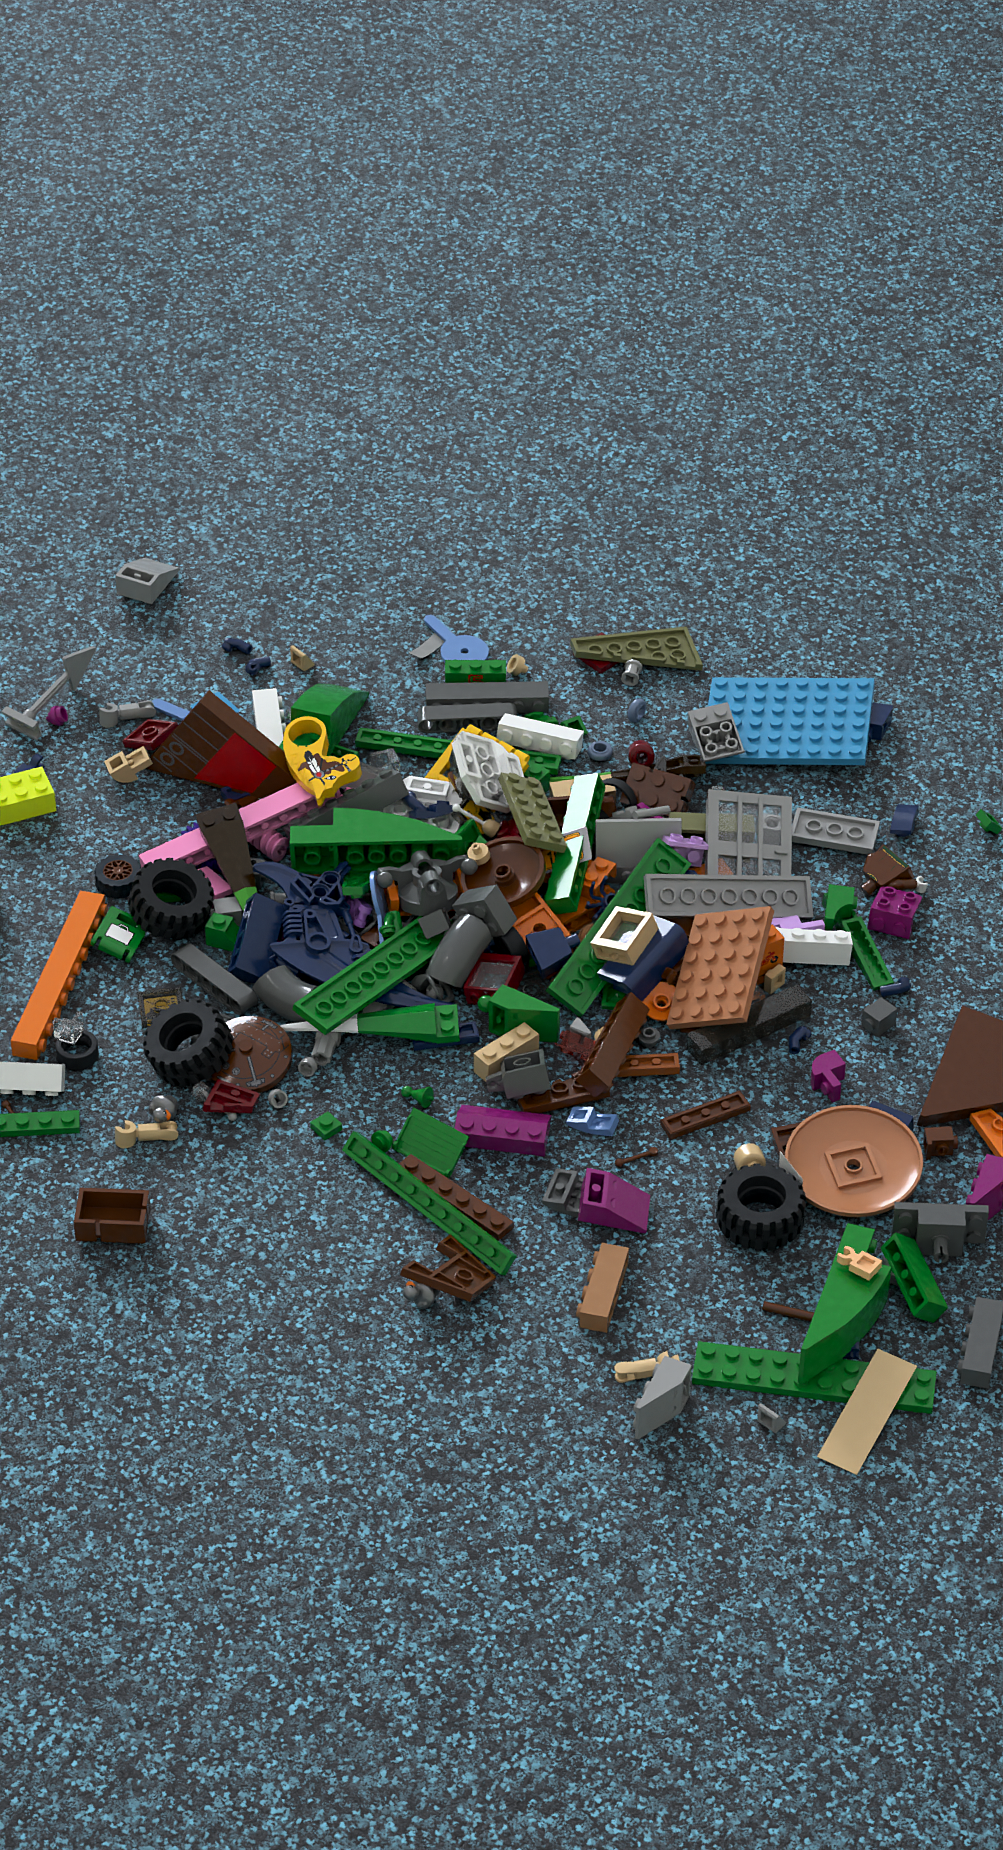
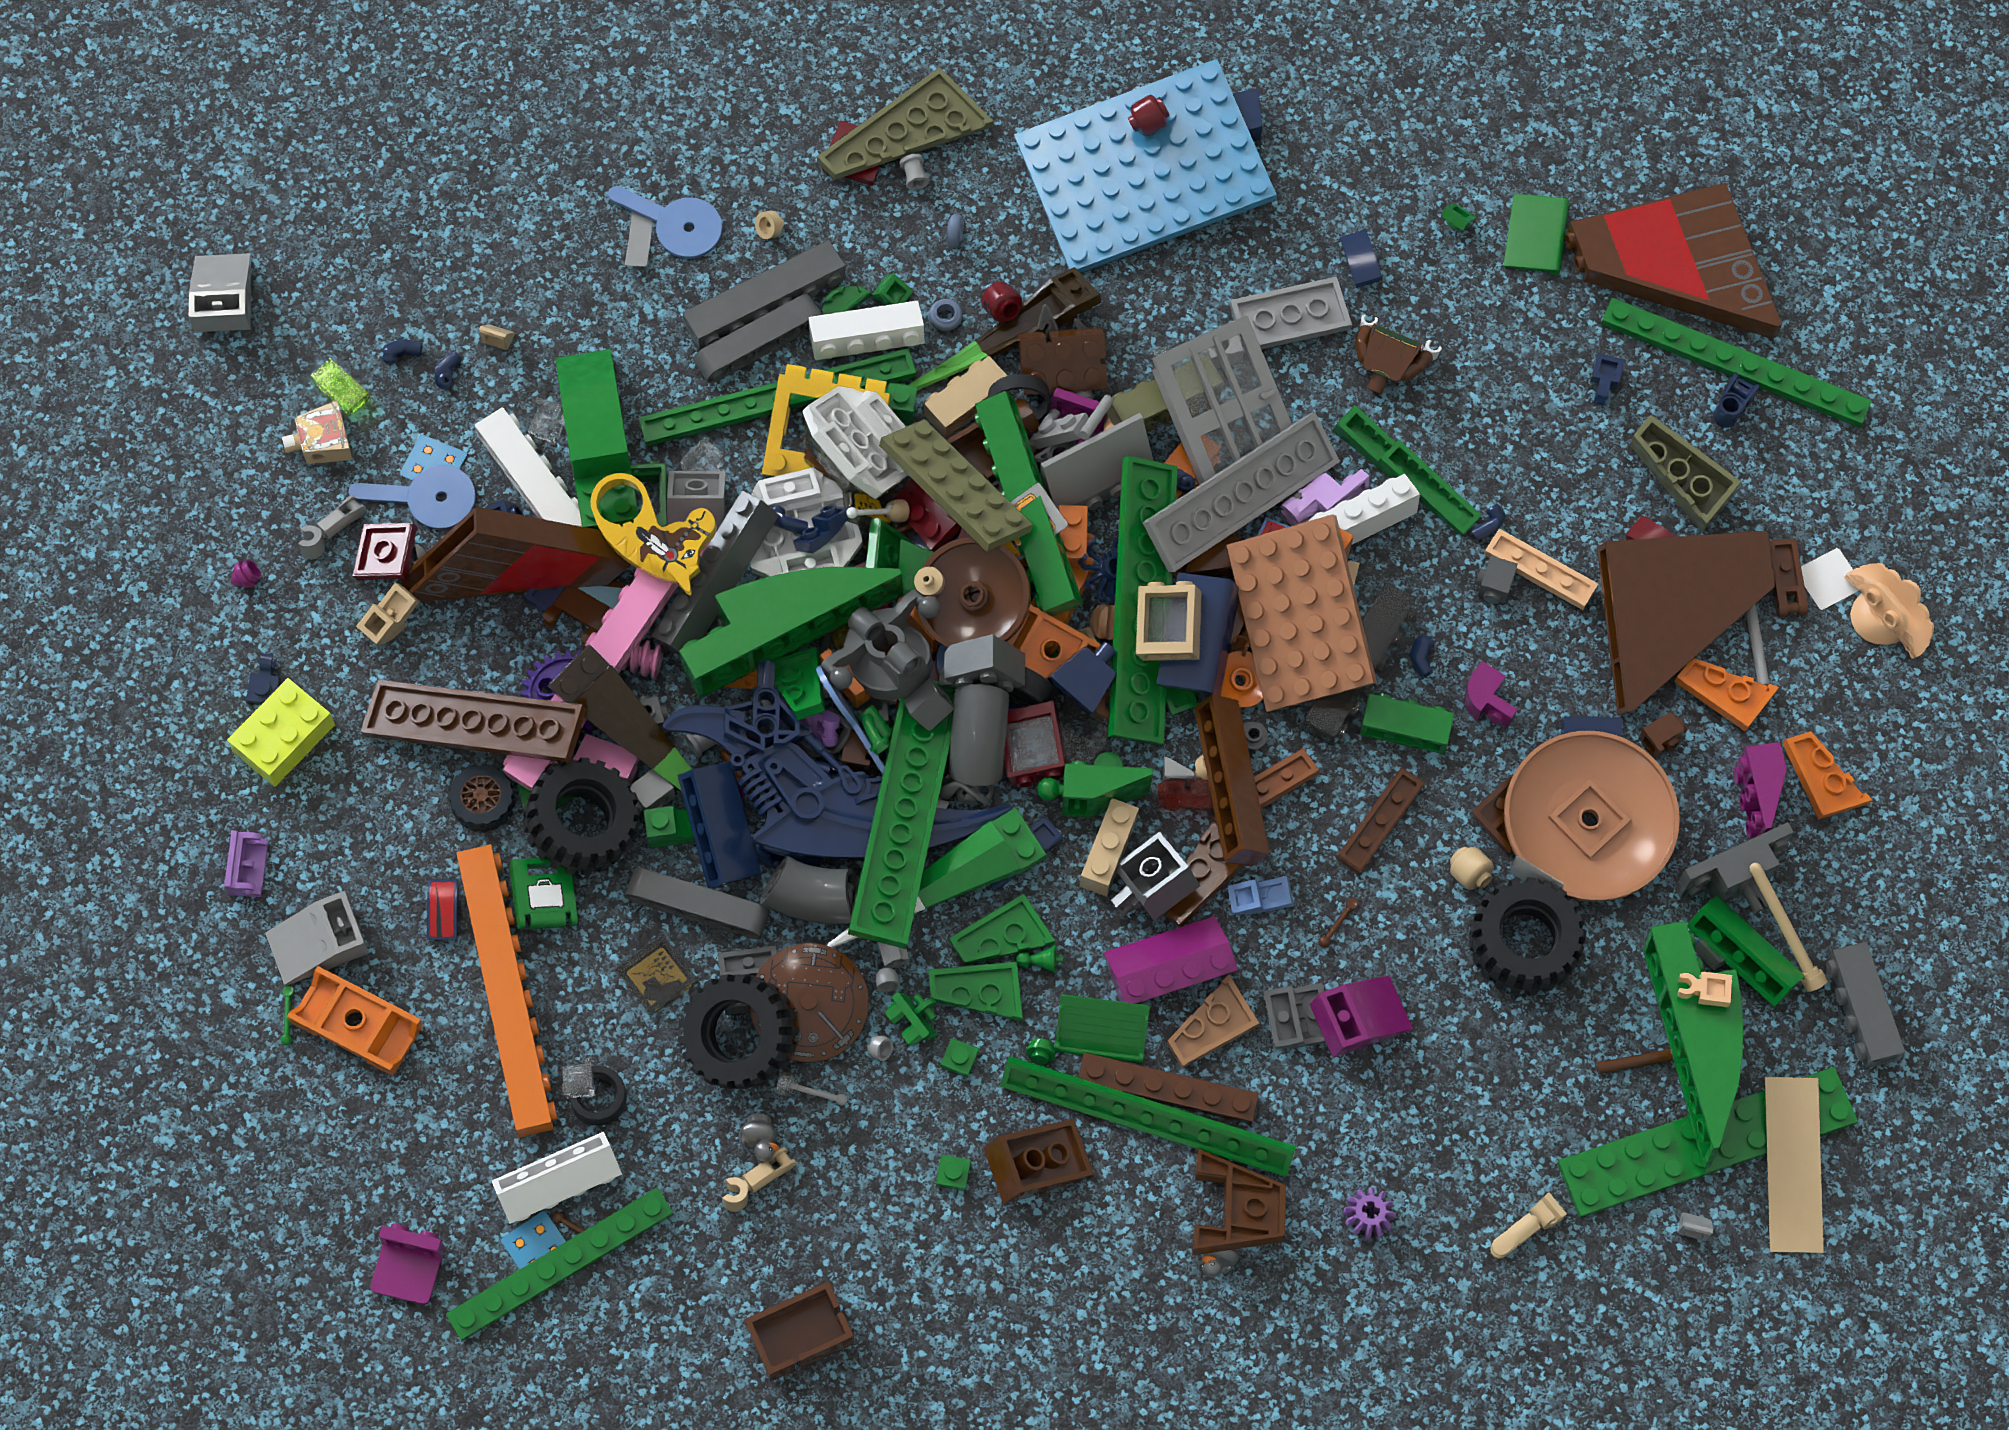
camera: 30 degrees left, 25 degrees up
(50, 921) = (442, 909): none -> red slope
(75, 667) = (209, 605): light grey piece -> none
(139, 825) = (474, 720): none -> plate
(154, 666) = (320, 435): none -> torso
(185, 650) = (340, 386): none -> clear neon green plate
(230, 1099) = (828, 1080): dark red wing -> none
(277, 1183) = (953, 1173): none -> green plate
(313, 1088) = (904, 1007): none -> green hips
(336, 1195) = (1037, 1160): none -> reddish brown slope
(365, 1093) = (979, 988): none -> green wing
(400, 1071) = (1002, 933): none -> green wing
(475, 671) = (730, 266): green brick -> none
(514, 1174) = (1214, 1024): none -> medium nougat wing
(542, 1314) = (1378, 1208): none -> medium lavender gear
(603, 1287) = (1414, 1138): medium nougat brick -> none
(662, 1396) = (1574, 1255): light grey slope -> none
(690, 849) = (1158, 445): lavender bracket -> none
(714, 732) = (1082, 237): light grey slope -> none
(759, 1068) = (1407, 723): none -> green brick
(804, 687) = (1148, 115): none -> dark red head
(839, 904) = (1364, 436): green arch -> none
(893, 912) = (1430, 409): magenta bracket -> none
(917, 1025) = (1543, 569): none -> light nougat plate
(955, 1314) = (1814, 977): none -> tan piece

